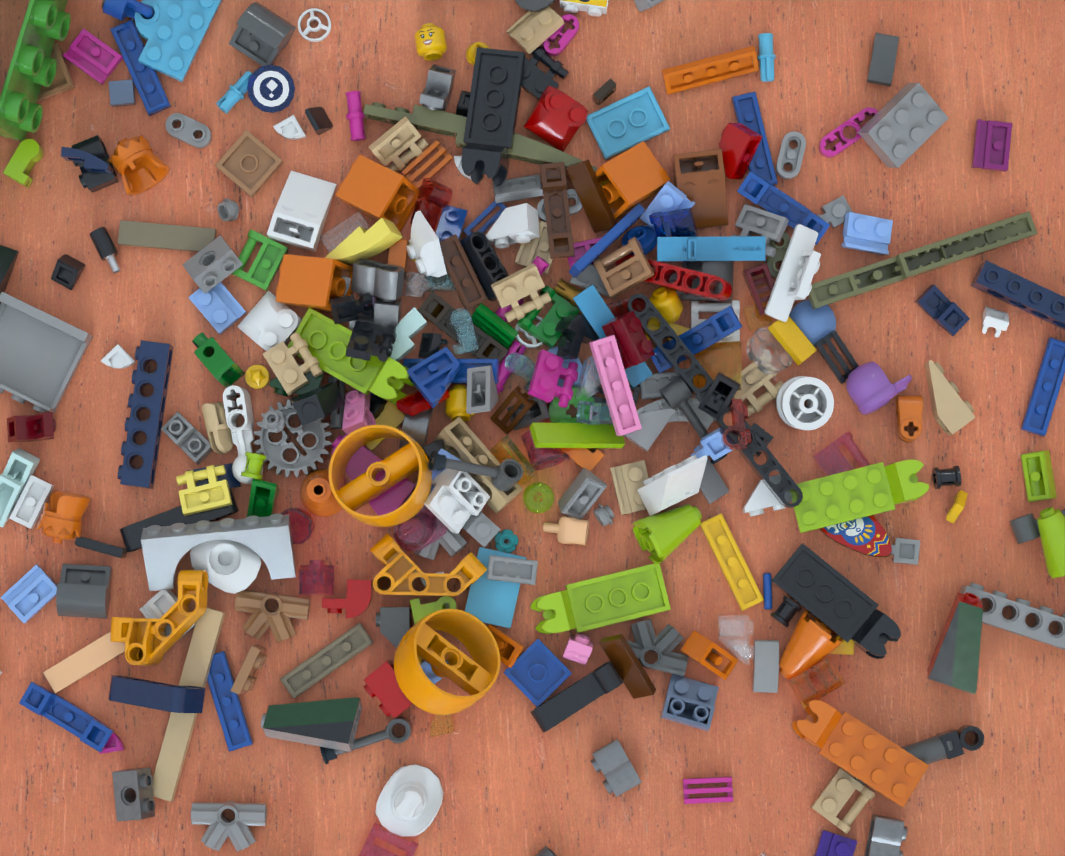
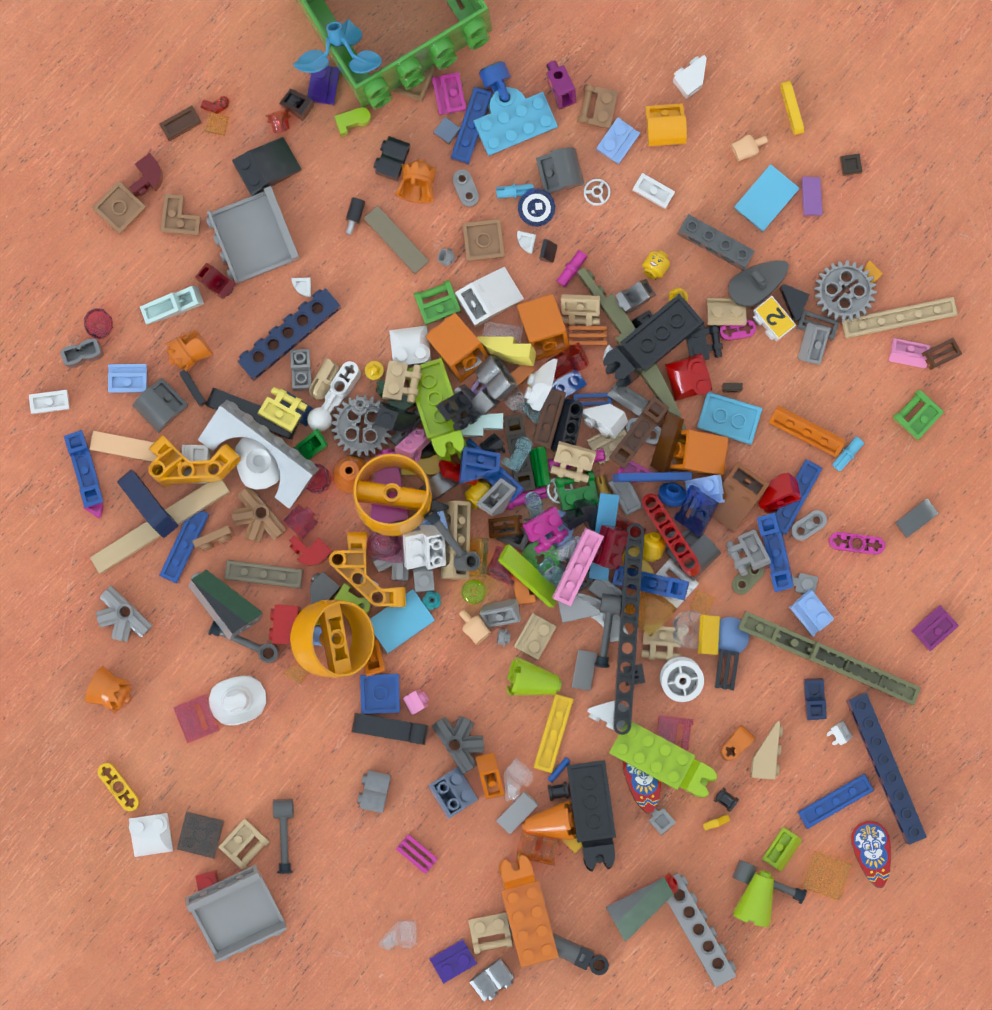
camera: 40 degrees right, 0 degrees up
(31, 502) = (176, 324): white plate -> none
(67, 271) = (319, 207): black slope -> none
(91, 162) = (390, 158): dark blue slope -> none
(127, 803) = (73, 554): flat silver brick -> none
(212, 264) = (407, 280): light grey brick -> none
(217, 360) = (359, 340): green torso -> none
(218, 307) = (389, 307): light blue plate -> none
(254, 464) = (324, 422): lime bush -> none
(347, 308) = (463, 379): black plate -> none
(512, 570) = (419, 620): light grey plate -> none
(603, 601) = (457, 687): lime hinge -> none
(626, 274) = (645, 507): medium nougat plate -> none
(627, 666) = (435, 738): reddish brown tile -> none
(673, 484) = (559, 656): white slope -> none
(711, 248) = (709, 537): dark azure piece -> none
(712, 445) = (605, 655): light blue plate -> none
(719, 396) = (632, 628): black slope -> none
(739, 413) = (635, 649): clear red plate -> none
(754, 271) = (730, 577): dark red slope -> none
(795, 273) = (745, 597): white bracket -> none
(871, 388) = (729, 705): medium lavender piece -> none
(903, 125) = (891, 568): light grey piece -> none

